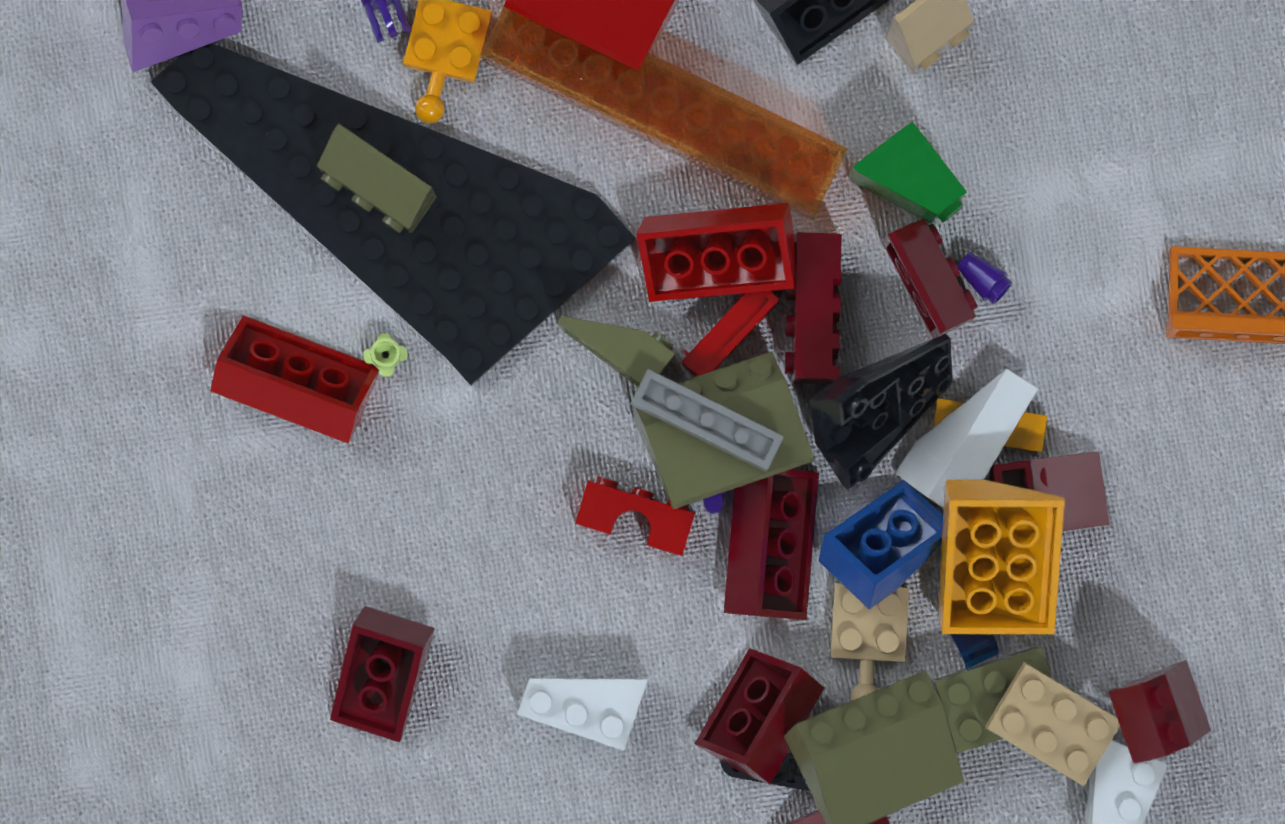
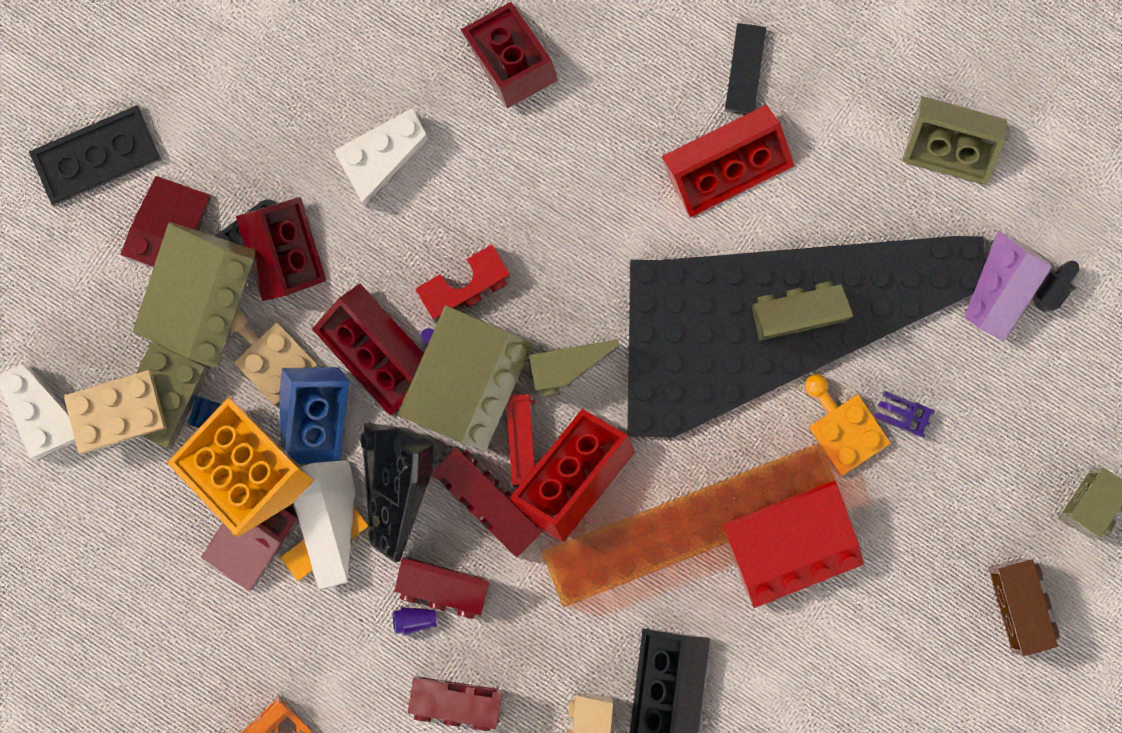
camera: 125 degrees right, 0 degrees up
(83, 187) = (955, 140): none -> olive slope
(193, 443) = (745, 68): none -> black tile
(385, 344) = (701, 230): yellowish green plate -> none
(707, 420) = (477, 371): light grey plate -> none
(910, 176) = (512, 631): green slope -> none
(1022, 168) = (455, 703): none -> dark red wedge
(1160, 713) = (62, 481): dark red slope -> none

